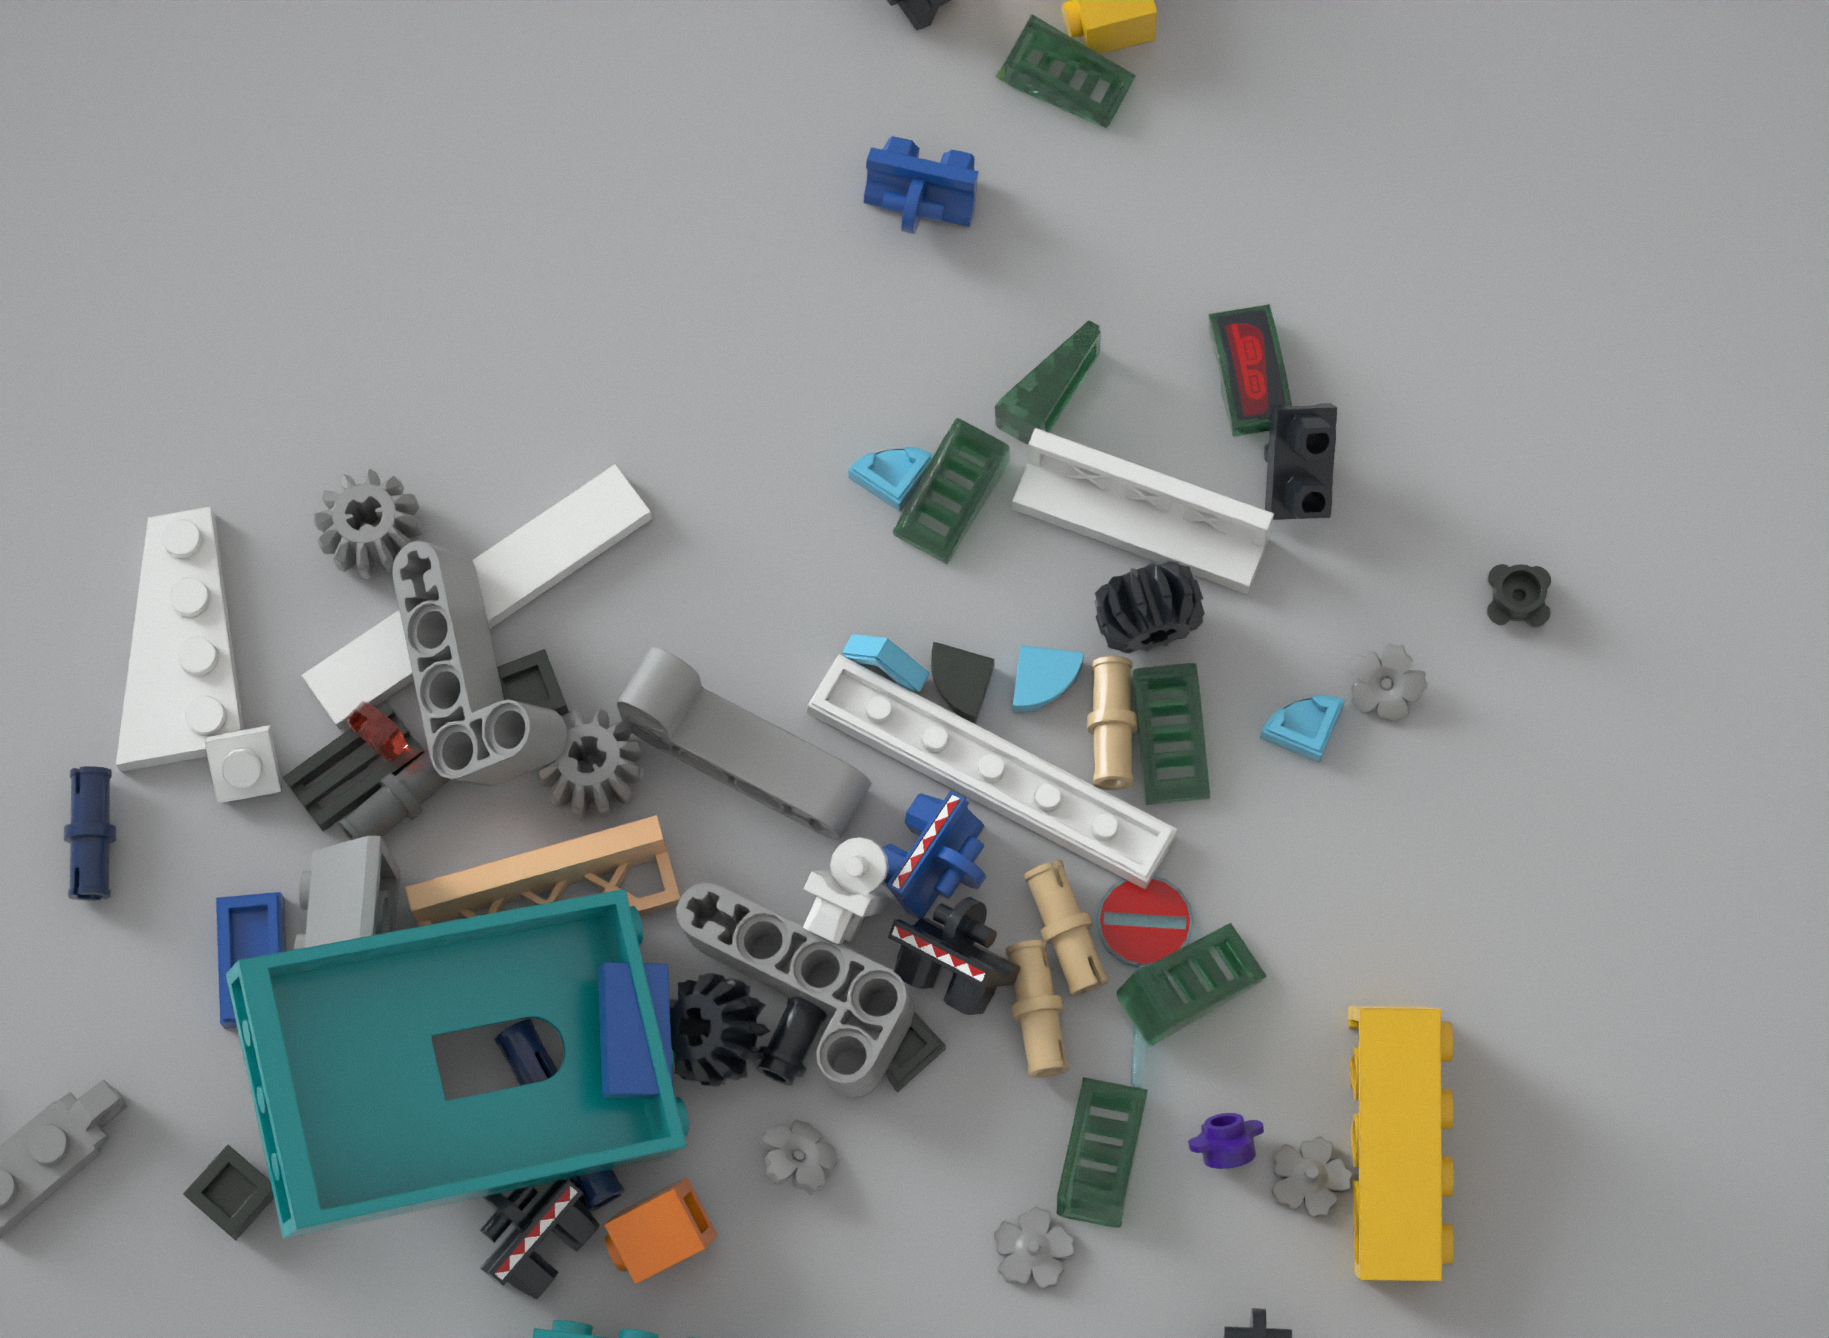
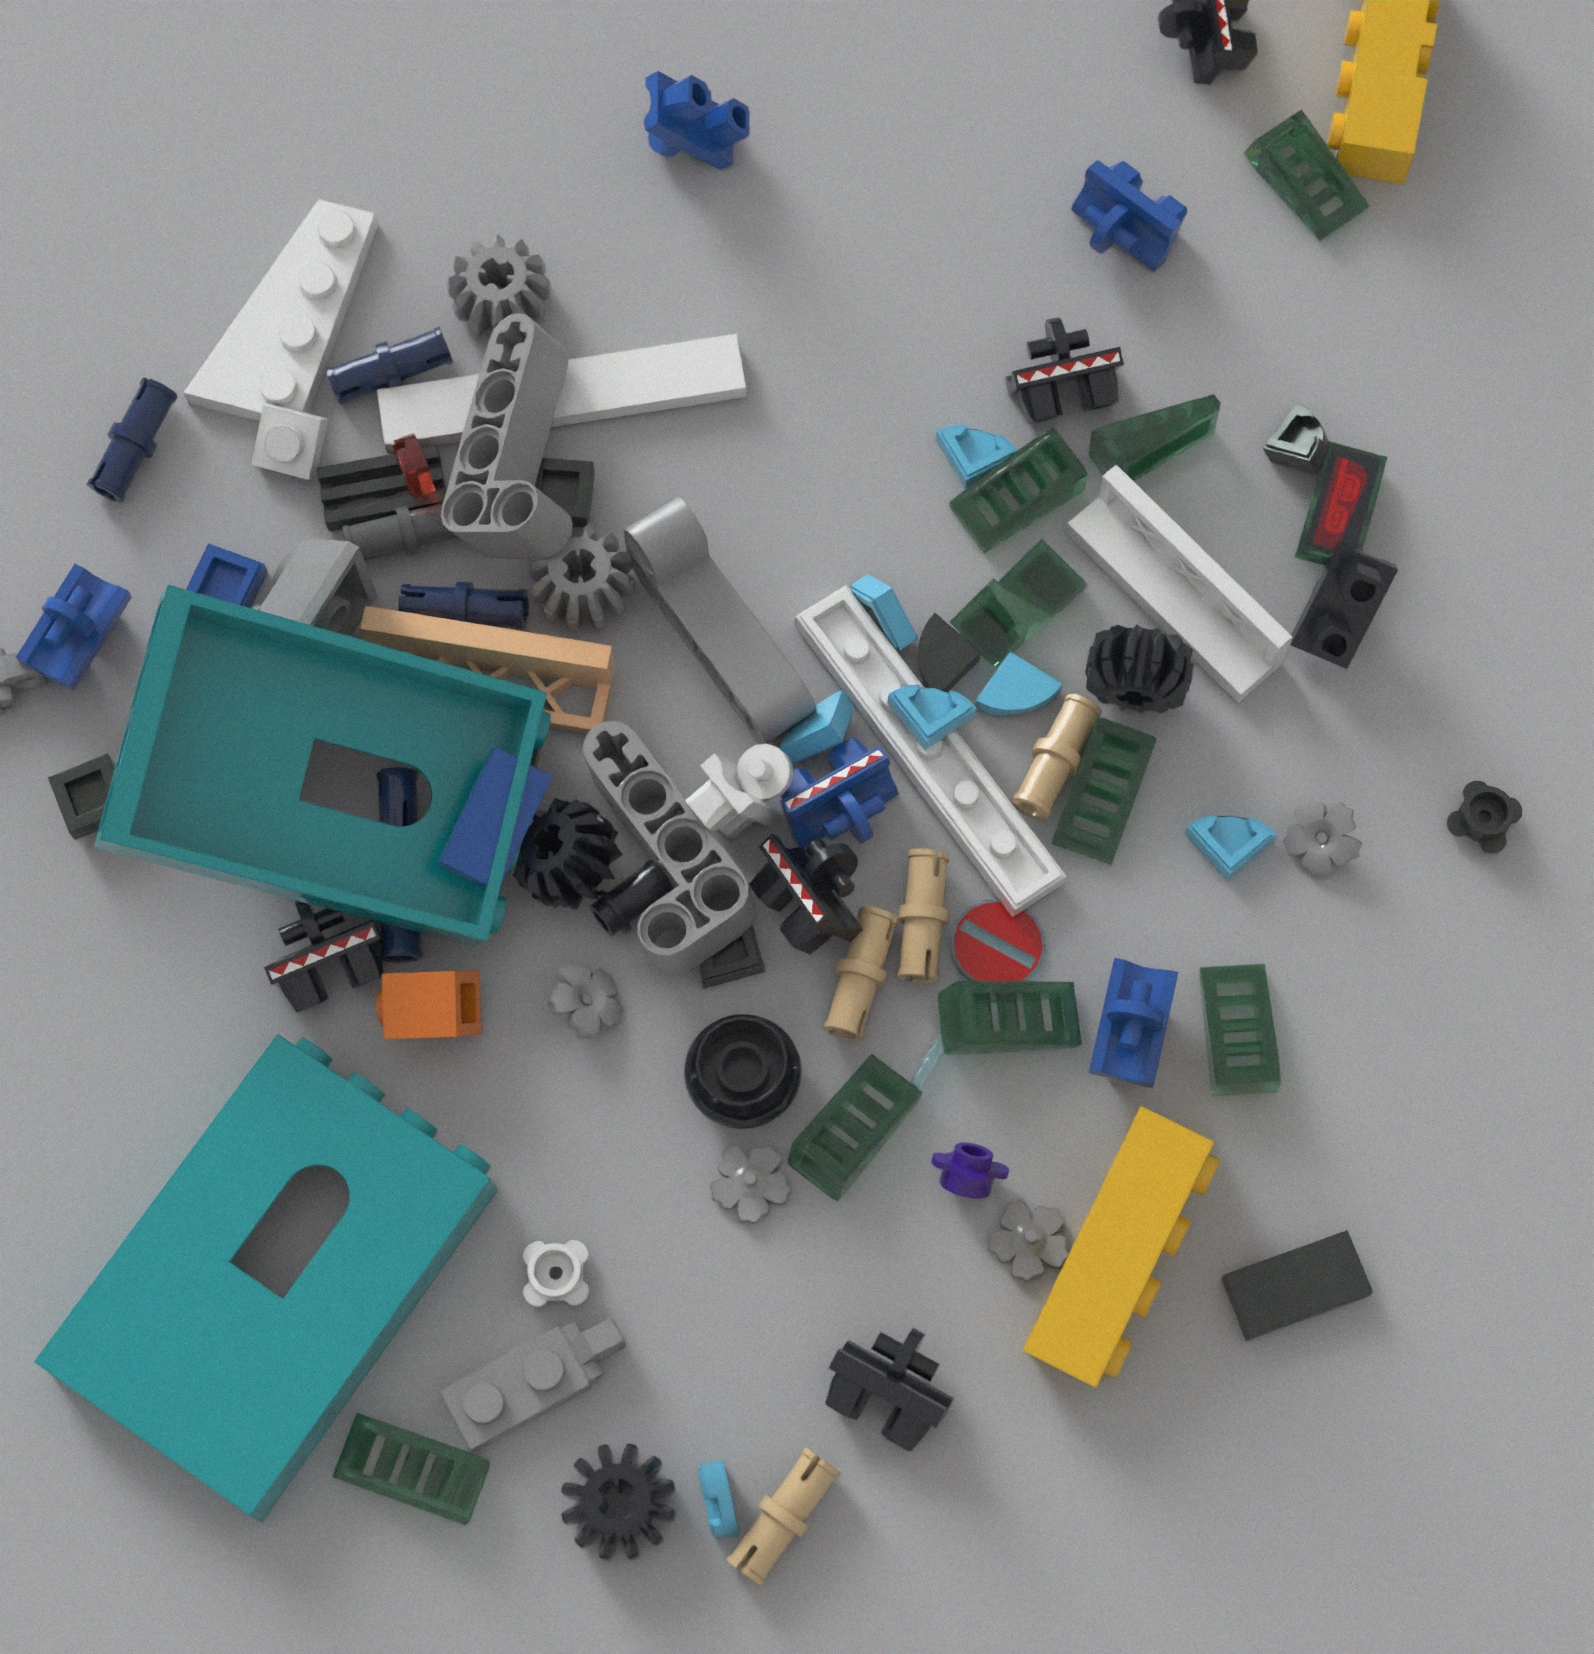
camera: 25 degrees right, 0 degrees up
(132, 1039) = (73, 627): none -> blue hips
(301, 646) = (389, 365): none -> dark blue pin
(473, 280) = (690, 121): none -> blue hips
(494, 840) = (467, 604): none -> dark blue pin
(884, 801) = (820, 729): none -> medium azure tile
(965, 349) = (1038, 384): none -> black hips
(977, 1151) = (742, 1071): none -> black piece
(978, 736) = (930, 712): none -> medium azure tile
(1004, 596) = (1019, 603): none -> clear green slope
(1183, 326) = (1299, 441): none -> pearl dark grey tile
(1306, 935) = (1133, 1023): none -> blue hips
(1405, 944) = (1239, 1079): none -> clear green slope
(1565, 1100) = (1296, 1285): none -> pearl dark grey tile

